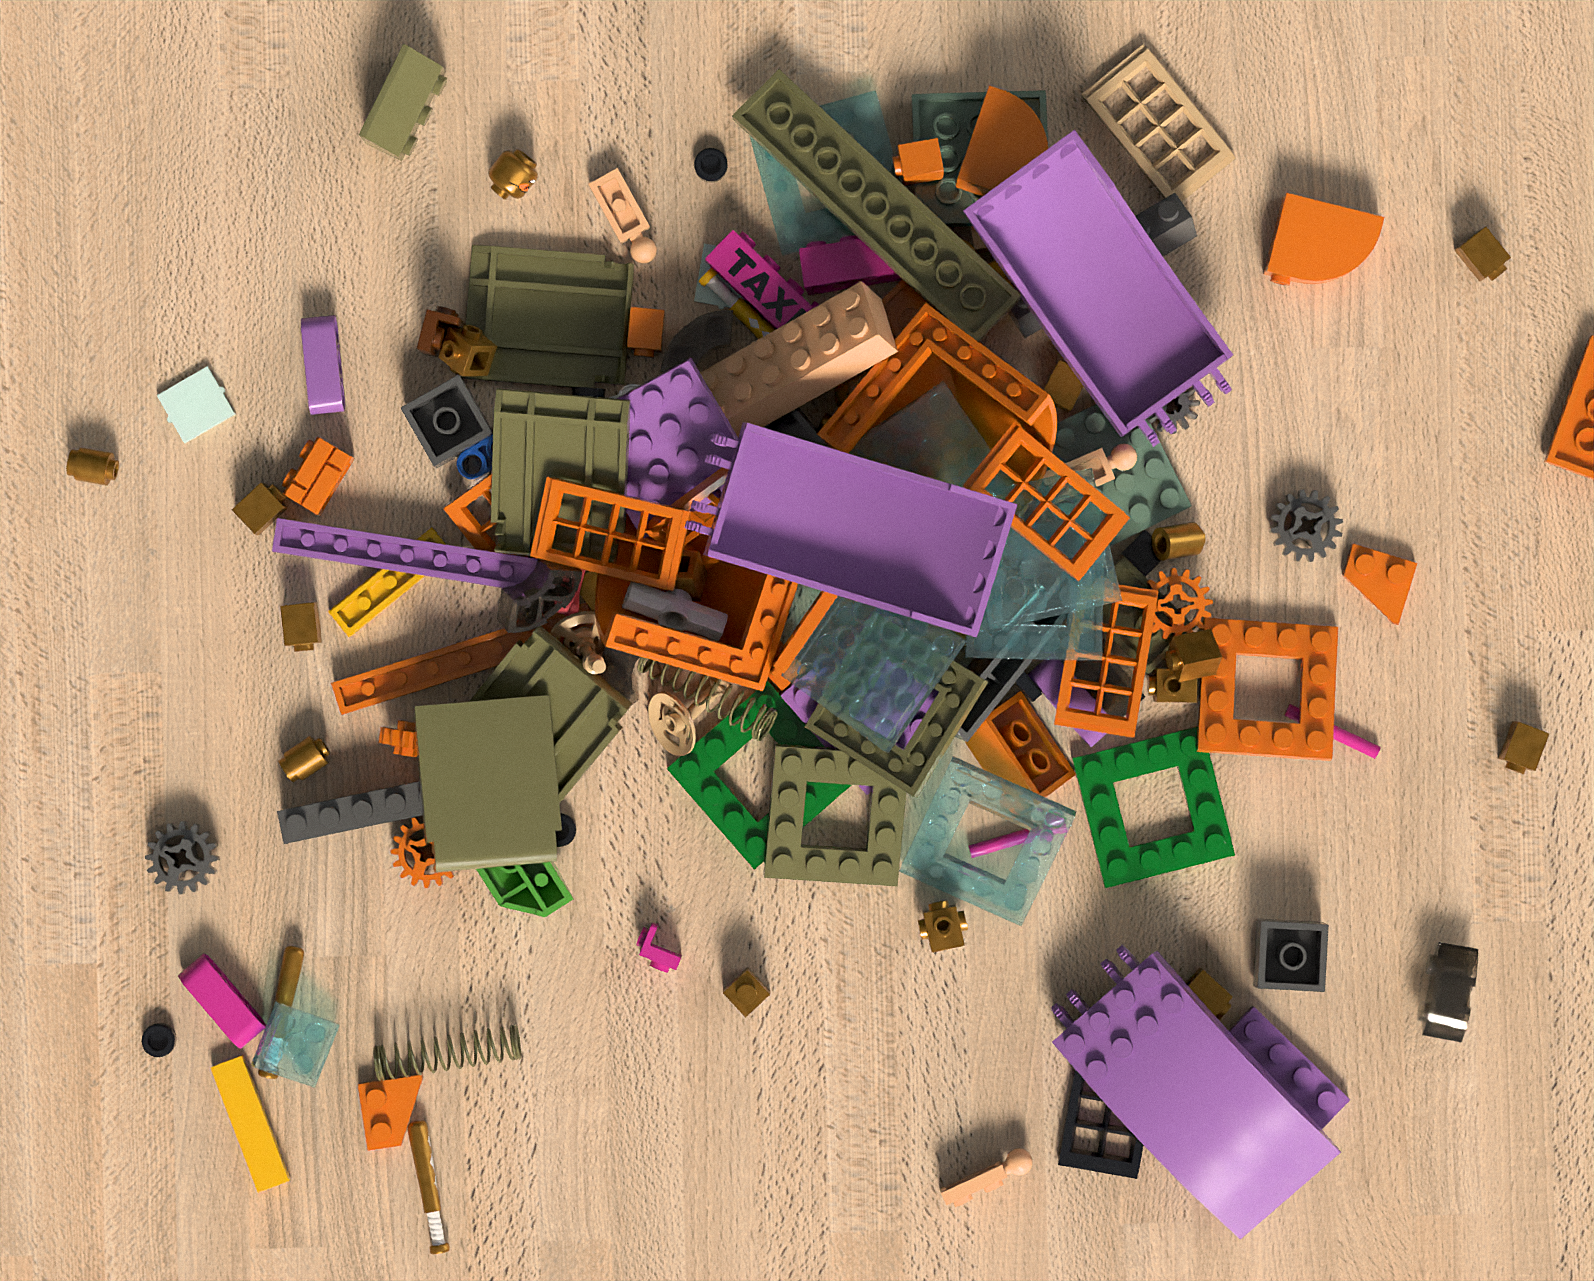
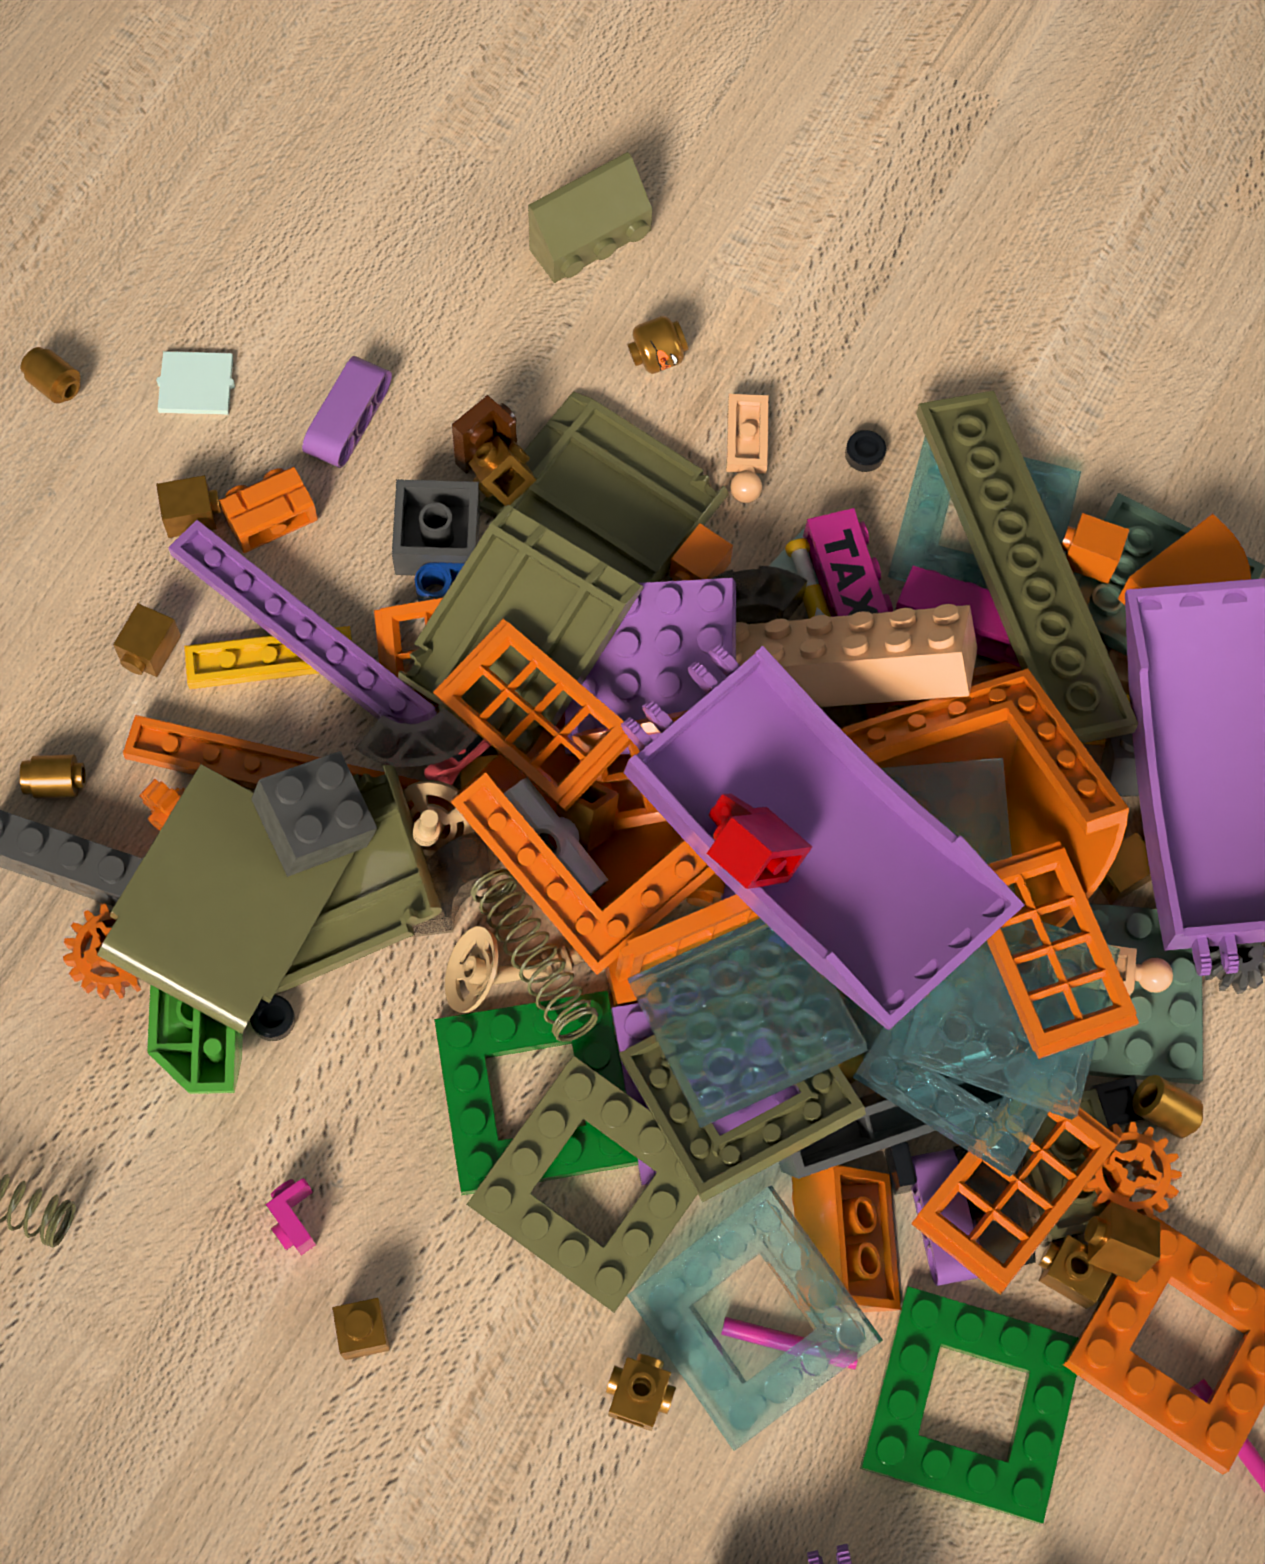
camera: 25 degrees right, 20 degrees down
(511, 694) = (313, 813): none -> dark grey brick
(822, 562) = (754, 843): none -> red hinge

